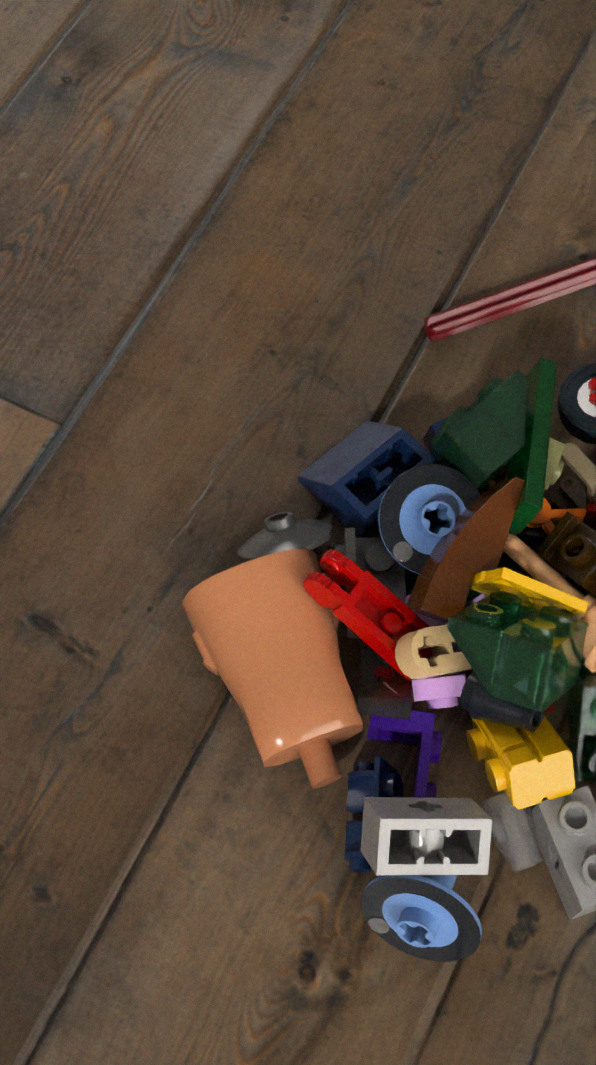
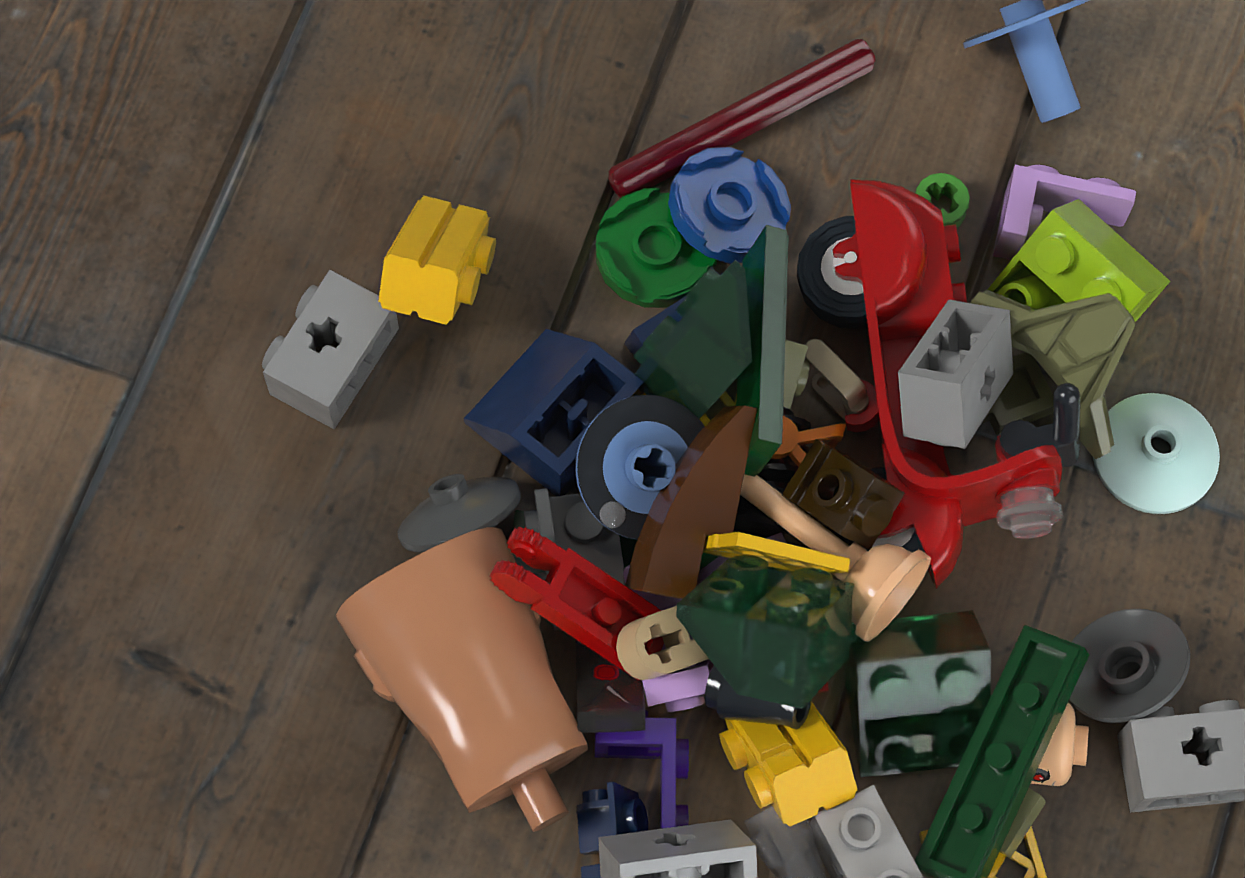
camera: 10 degrees left, 5 degrees up
(206, 415) = (329, 380): none -> light grey brick
(291, 360) = (436, 260): none -> yellow brick
(450, 373) = (645, 253): none -> green tile
(506, 343) = (726, 202): none -> blue tile

